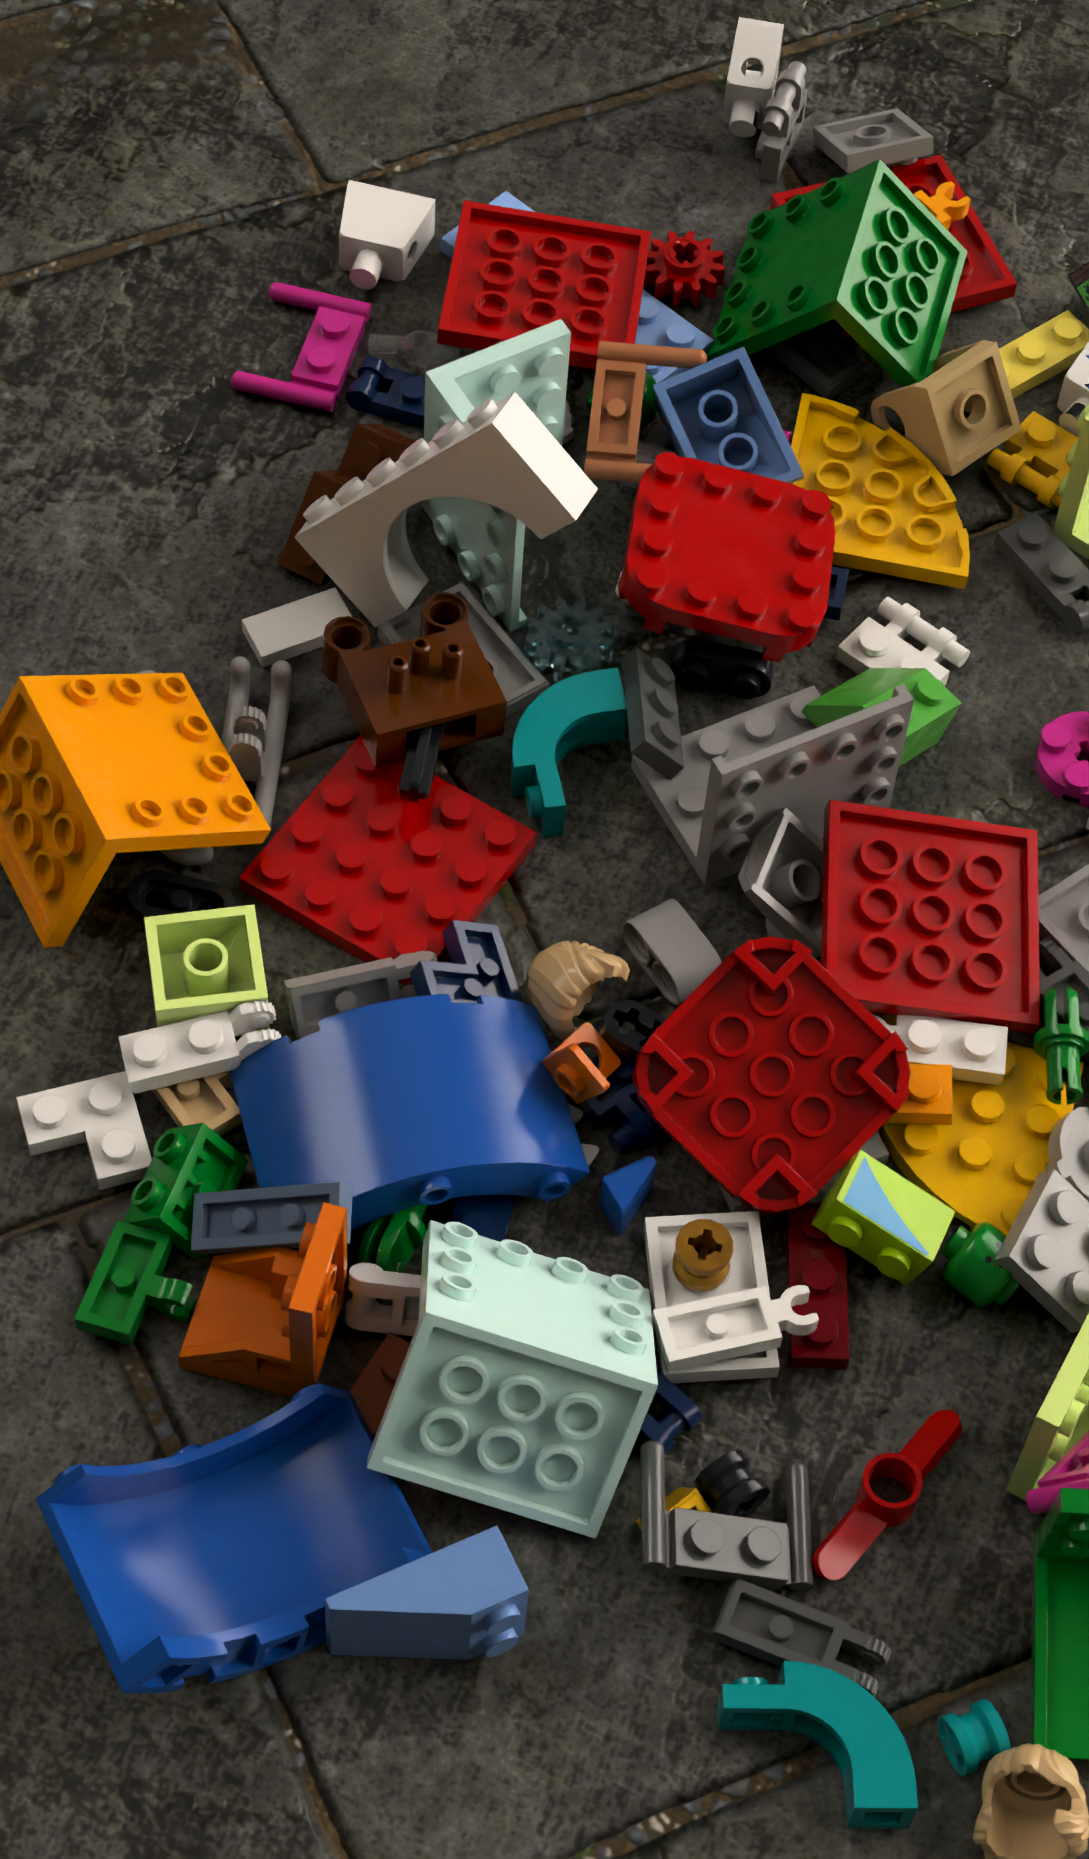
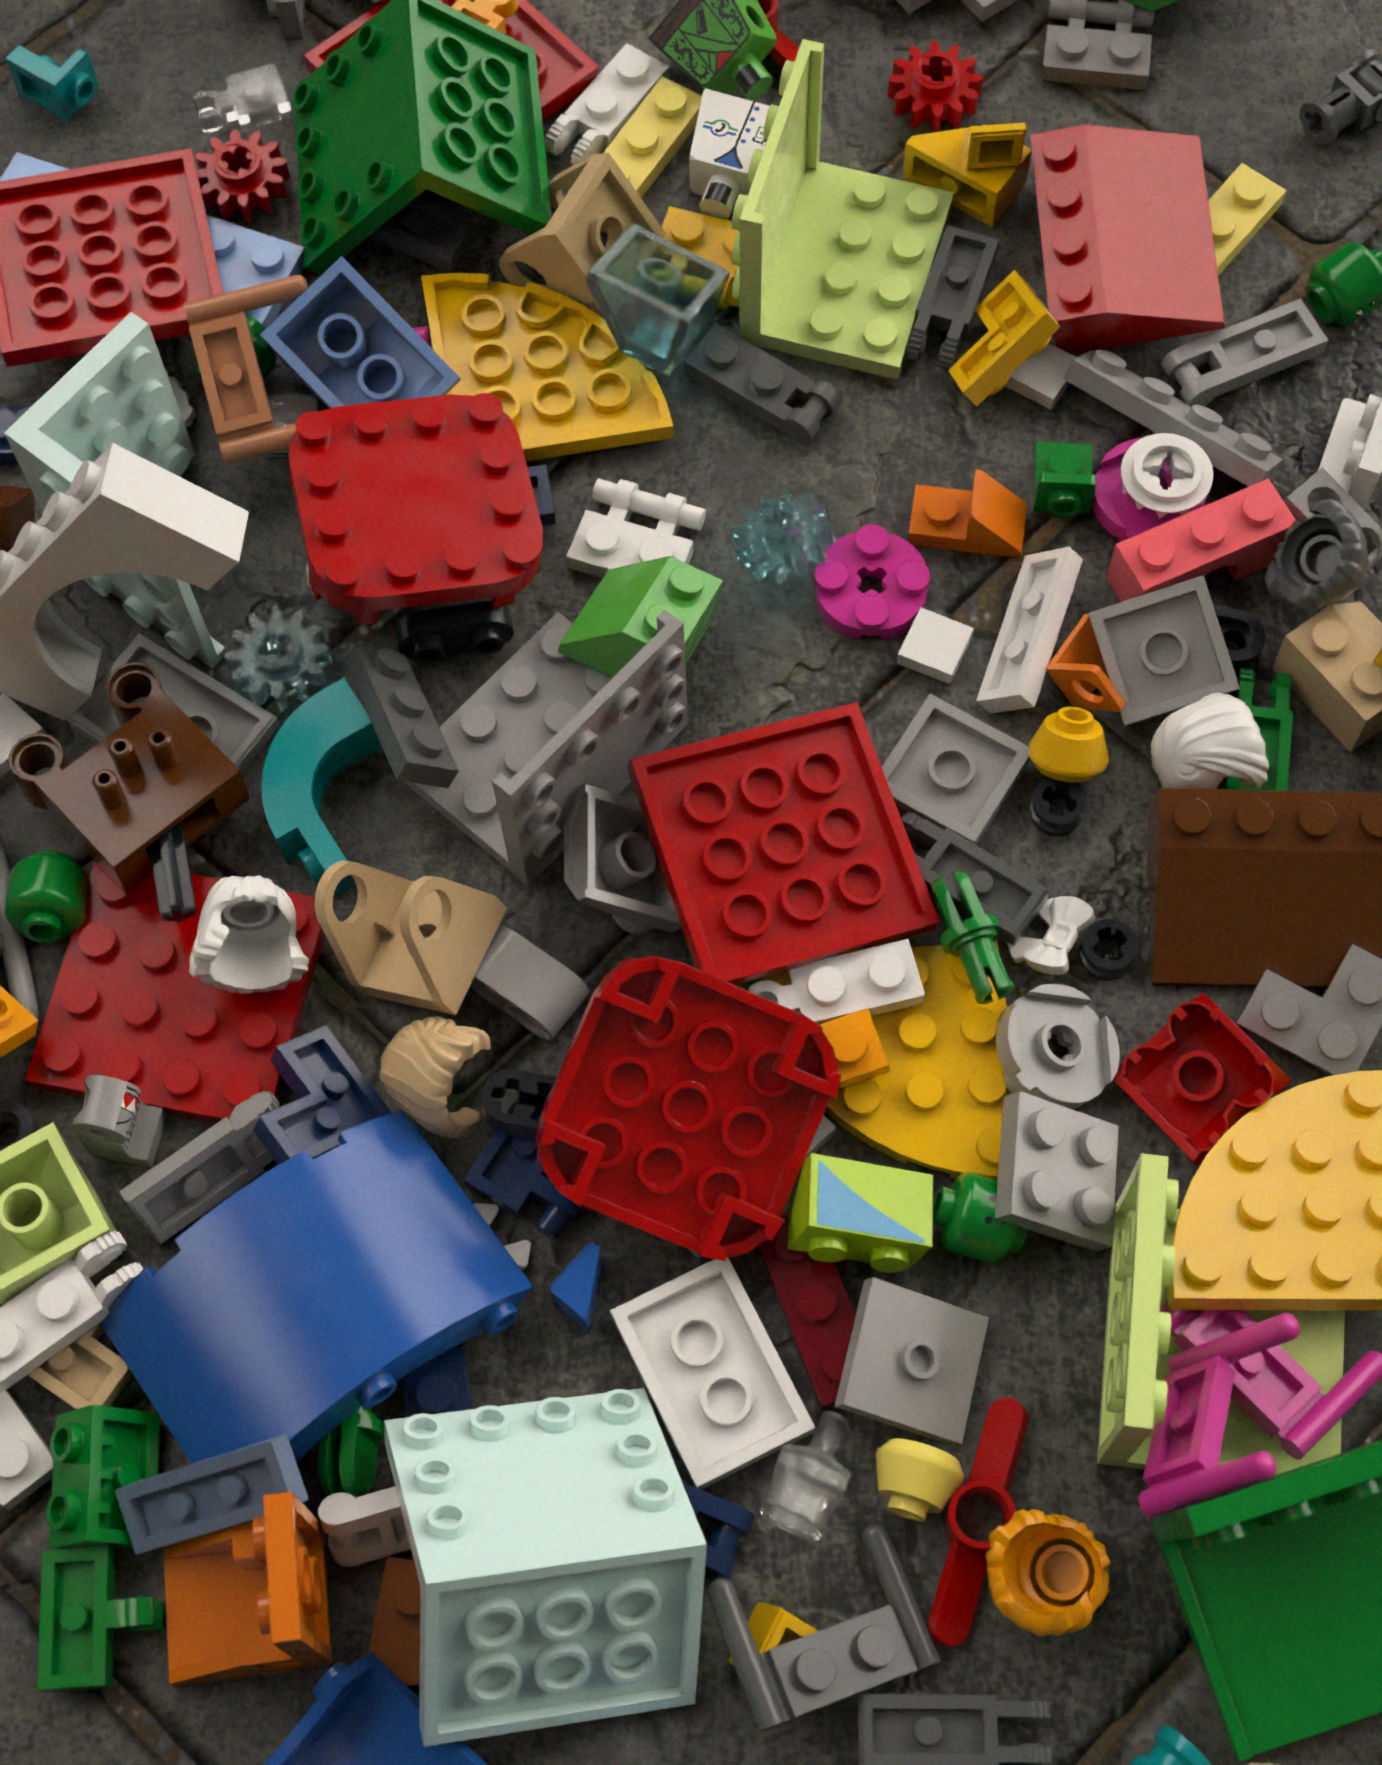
camera: 15 degrees left, 10 degrees up
(300, 929) = (117, 1122): none -> light grey leg
(312, 745) = (46, 894): none -> green head
(463, 827) = (247, 937): none -> white hair
(554, 150) = (53, 87): none -> teal bracket
(575, 1071) = (470, 1183): orange bracket -> none
(588, 881) = (409, 937): none -> tan hose
(699, 1269) = (690, 1351): pearl gold wheel -> none
(714, 214) = (251, 97): none -> clear plate
(729, 1325) = (745, 1410): white plate -> none
(732, 1485) = (816, 1587): black wheel -> none
(756, 1408) = (808, 1482): none -> clear piece
(848, 1435) = (916, 1478): none -> light yellow cone
(880, 1350) = (912, 1362): none -> light grey plate
(929, 1539) = (1047, 1572): none -> light orange hair
(993, 471) = (655, 297): none -> clear light blue slope
(1012, 313) = (606, 104): none -> white hinge
(1027, 691) = (783, 535): none -> clear light blue gear

